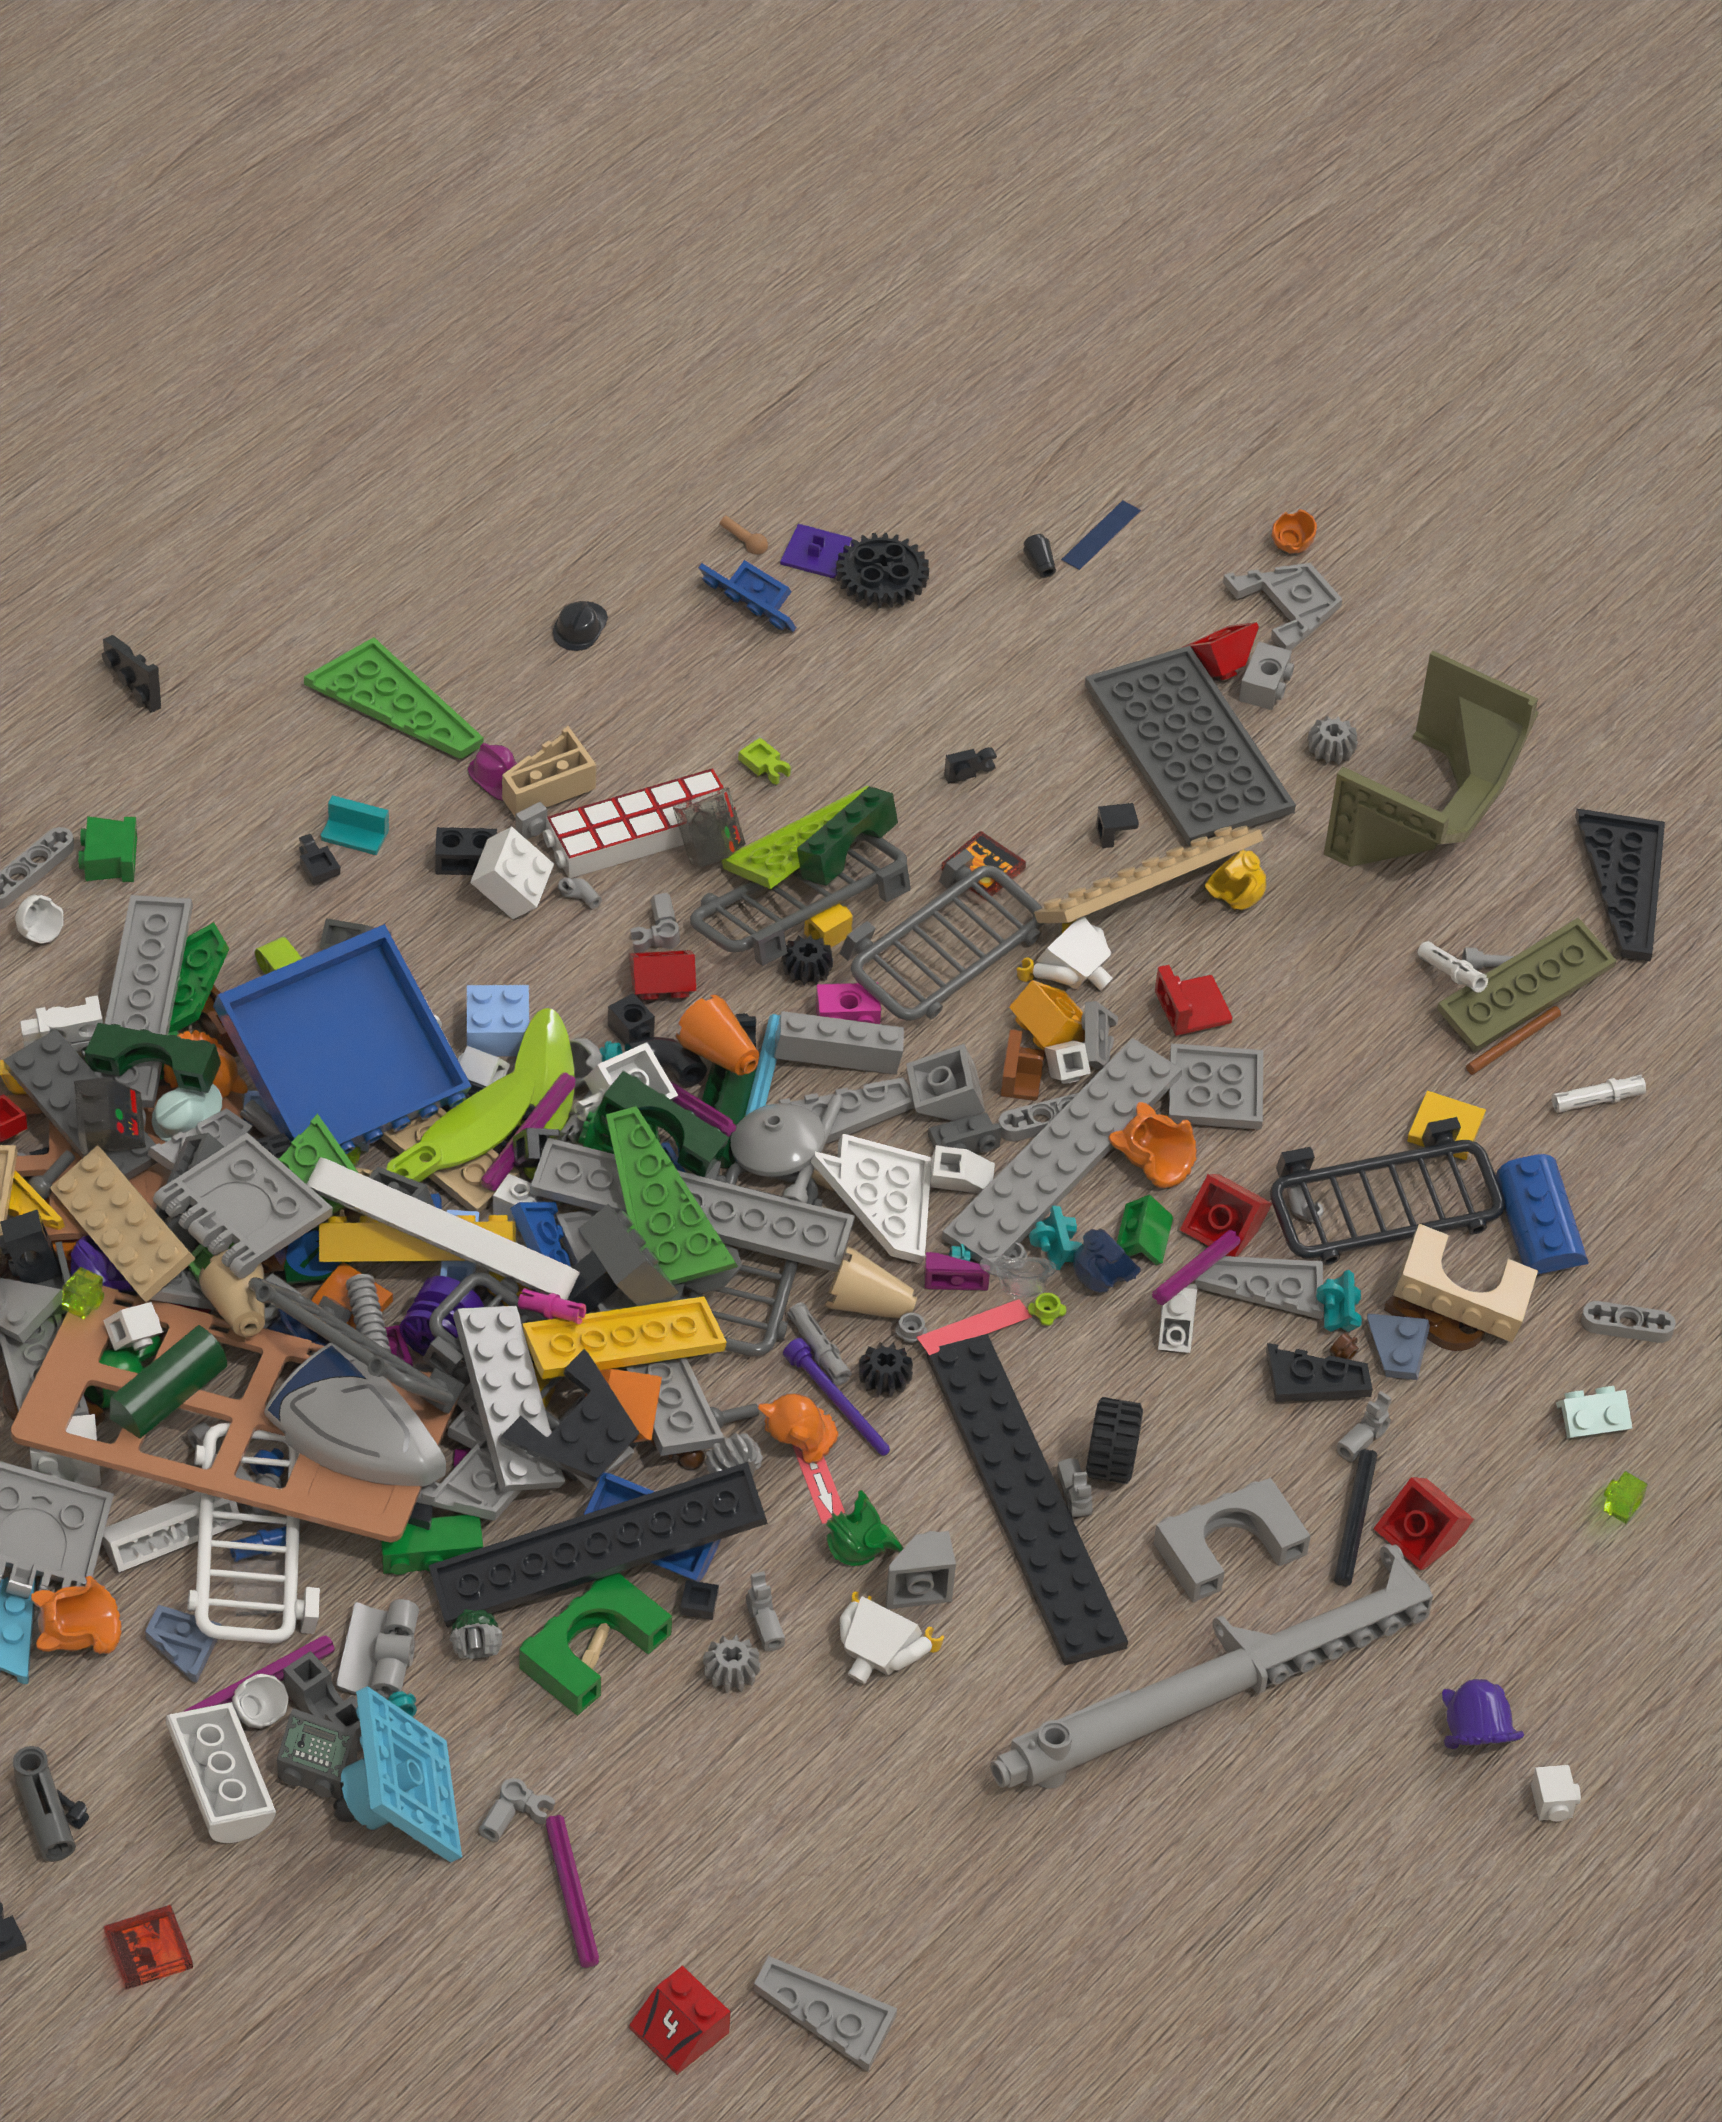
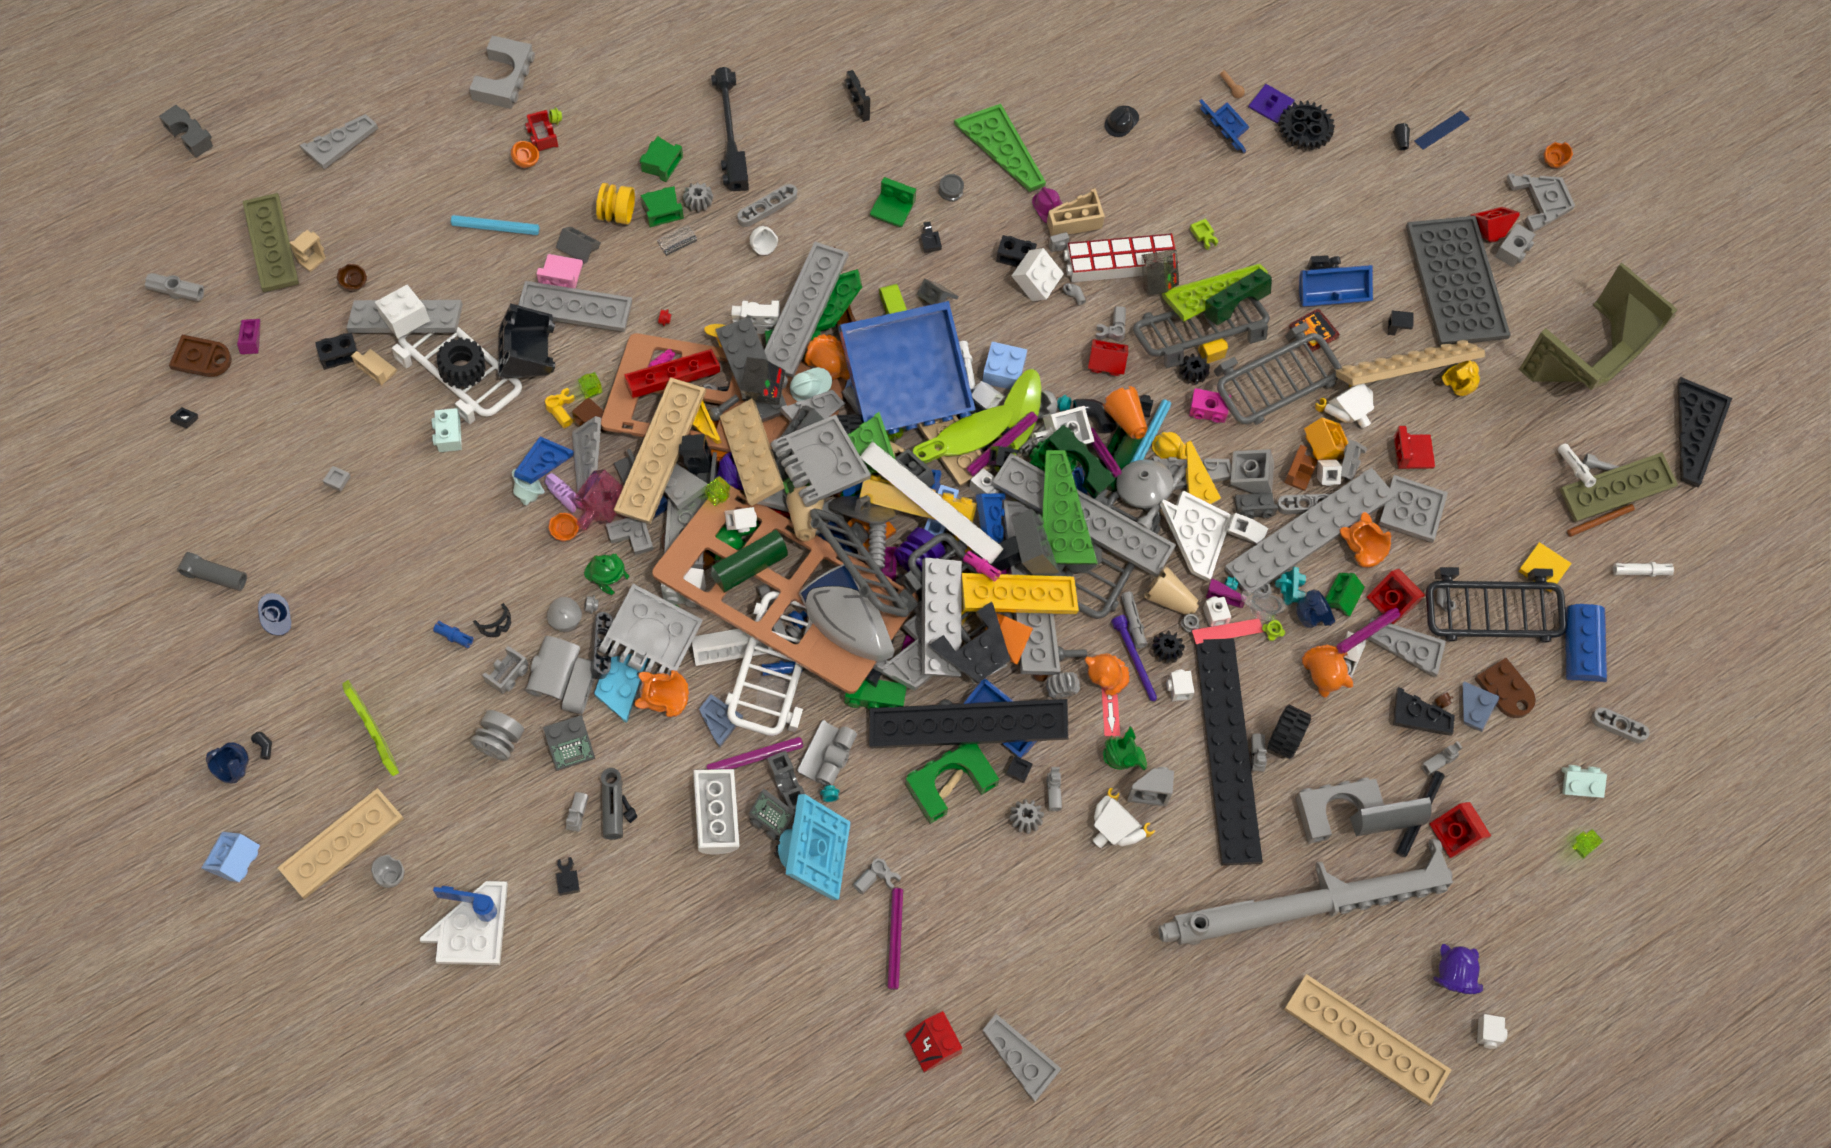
camera: 15 degrees right, 15 degrees up
(109, 849) = (814, 204): green hips -> none
(120, 1048) = (780, 339): dark green arch -> none
(148, 1947) = (647, 909): clear red tile -> none
(241, 817) = (894, 202): none -> green bracket
(260, 1701) = (750, 771): white hair -> none
(329, 777) = (951, 187): none -> dark grey wheel
(330, 1270) = (862, 509): none -> flat silver shield
(355, 825) = (958, 221): teal panel -> none
(476, 1635) = (884, 760): light grey piece -> none
(630, 1019) = (1081, 378): black brick -> none
(800, 1078) = (1169, 445): none -> yellow piece
(839, 1042) = (1198, 428): light grey brick -> none
(859, 1111) = (1197, 477): none -> yellow wing
(923, 1420) = (1180, 685): none -> white brick
(948, 1300) = (1216, 611): none -> white brick
(998, 790) = (1336, 285): none -> blue container
(1147, 1338) = (1327, 668): none -> orange hair
(1310, 1520) = (1391, 816): none -> dark grey brick
(1332, 740) = (1544, 297): light grey gear -> none
(1339, 1302) = (1448, 670): teal hips -> none
(1366, 1852) = (1368, 1040): none -> tan plate
(1426, 1285) = (1504, 674): tan arch -> none

